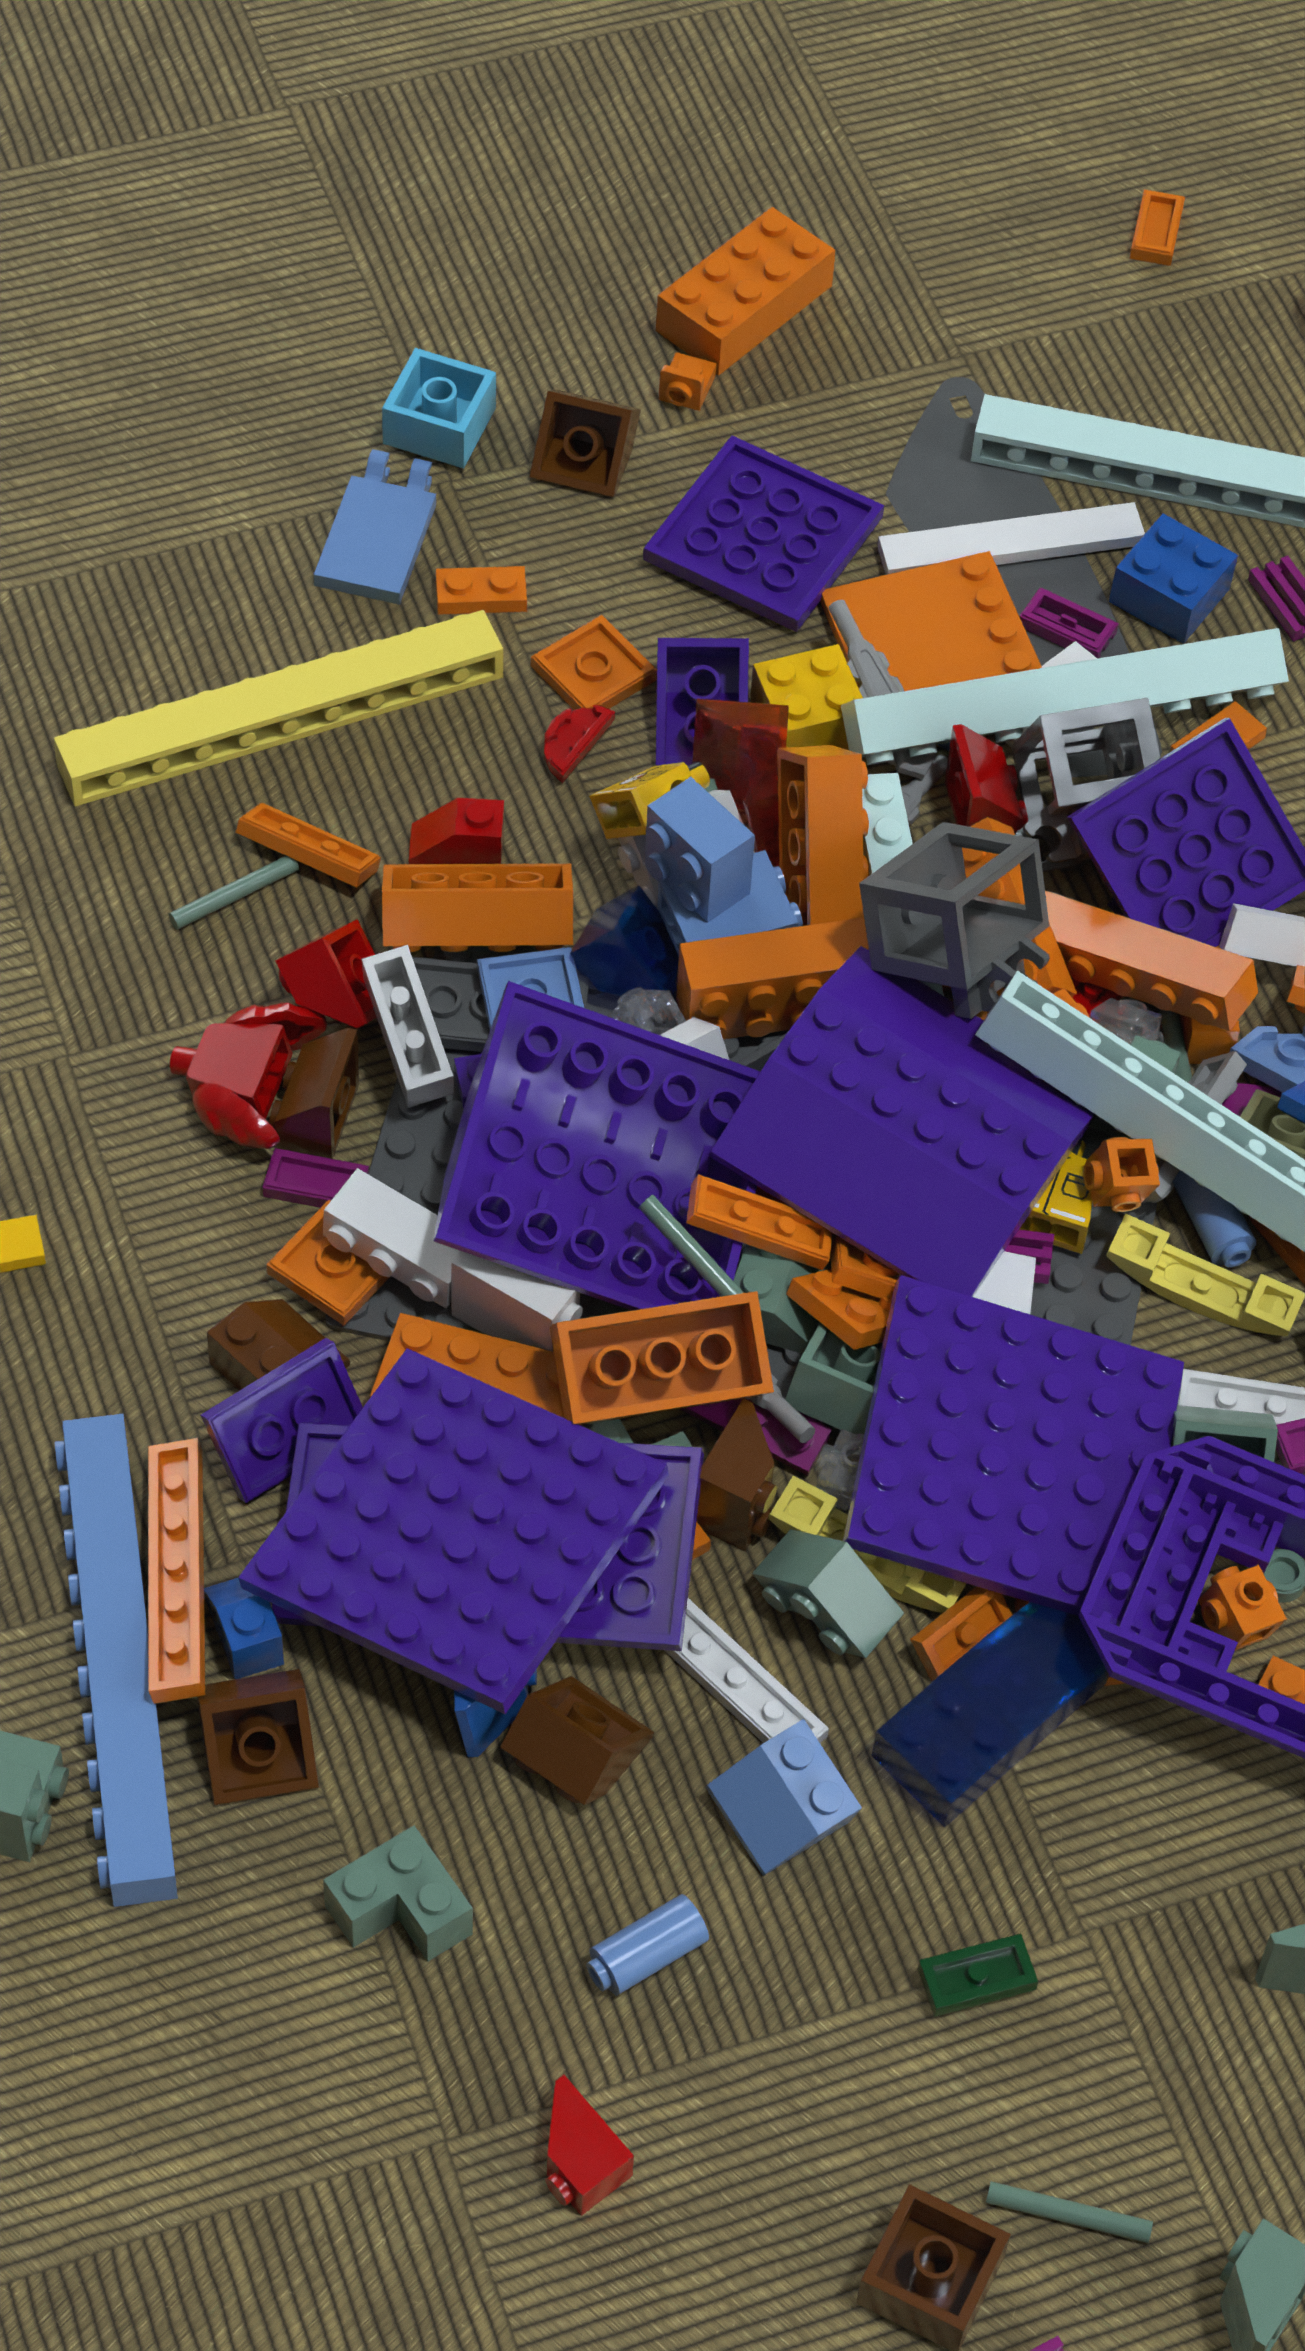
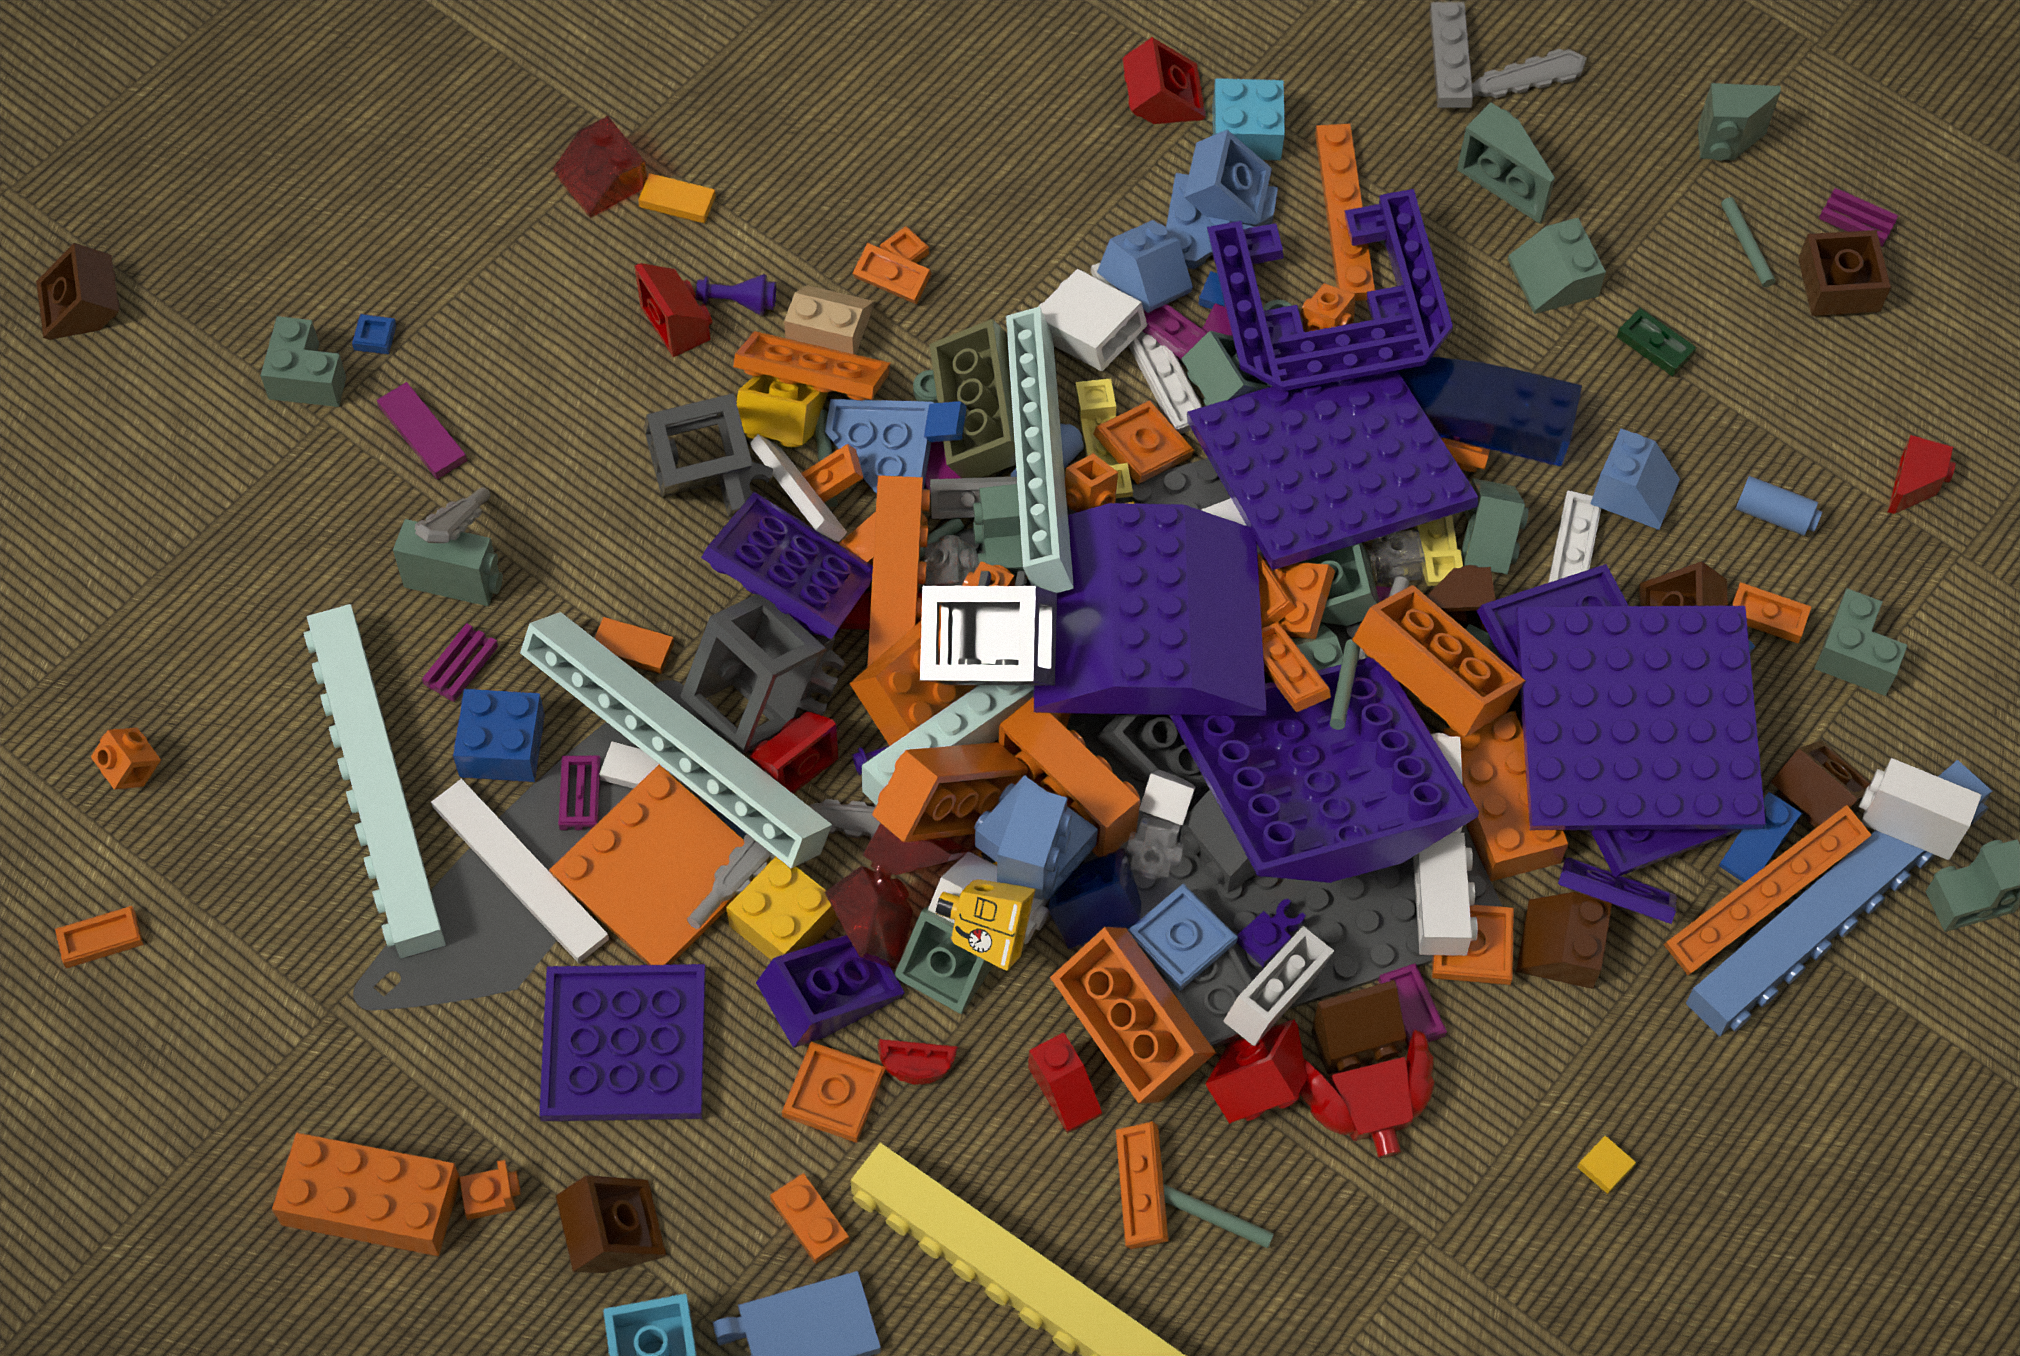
camera: 120 degrees left, 5 degrees up
(133, 1737) = (1918, 808): none -> white brick
(514, 1835) = (1772, 612): none -> orange plate
(1161, 1935) = (1558, 267): none -> sand green slope
(1183, 1317) = (1143, 441): none -> orange tile

